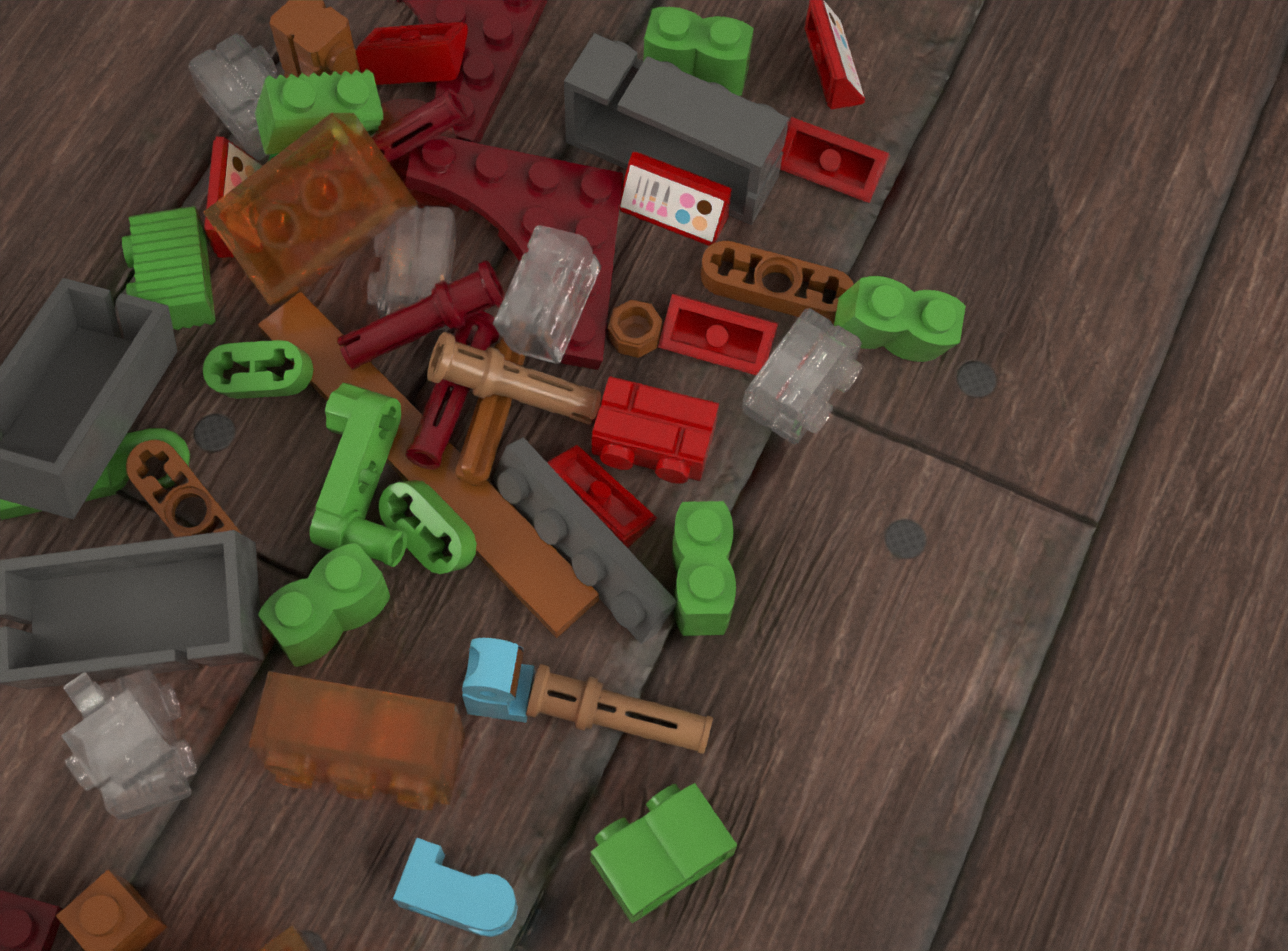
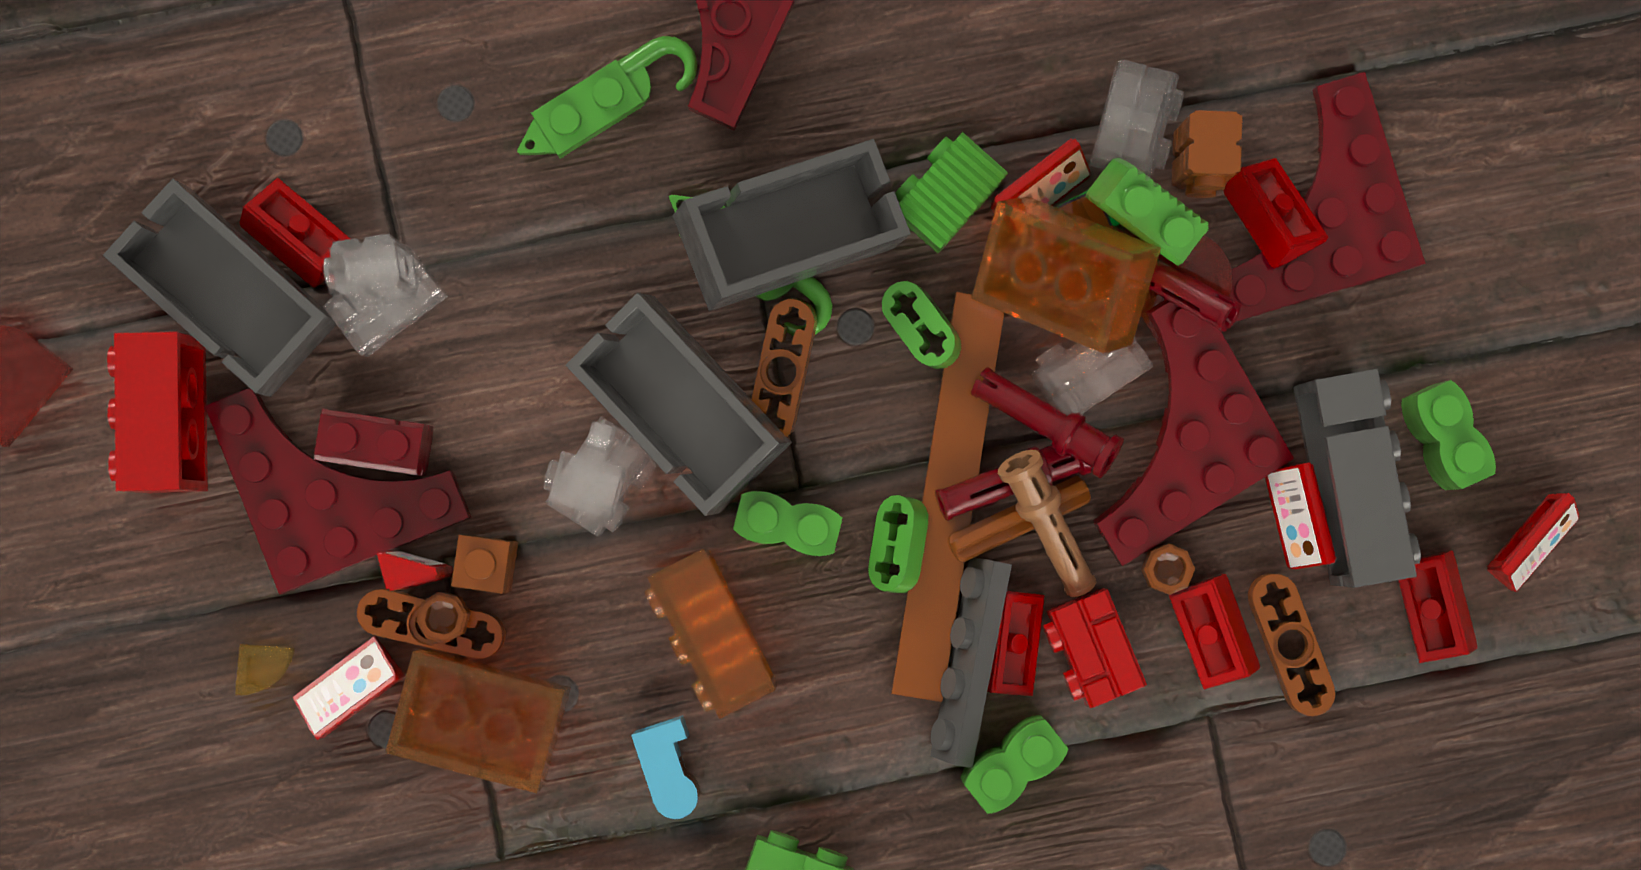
camera: 55 degrees right, 20 degrees up
(368, 431) = (937, 446): bright green beam -> none
(497, 680) = (824, 685): medium azure leg -> none
(547, 294) = (1133, 499): clear brick -> none
(691, 729) = (859, 756): medium nougat pin -> none
(802, 376) = (1222, 725): clear brick -> none
(905, 322) = (1320, 767): bright green brick -> none

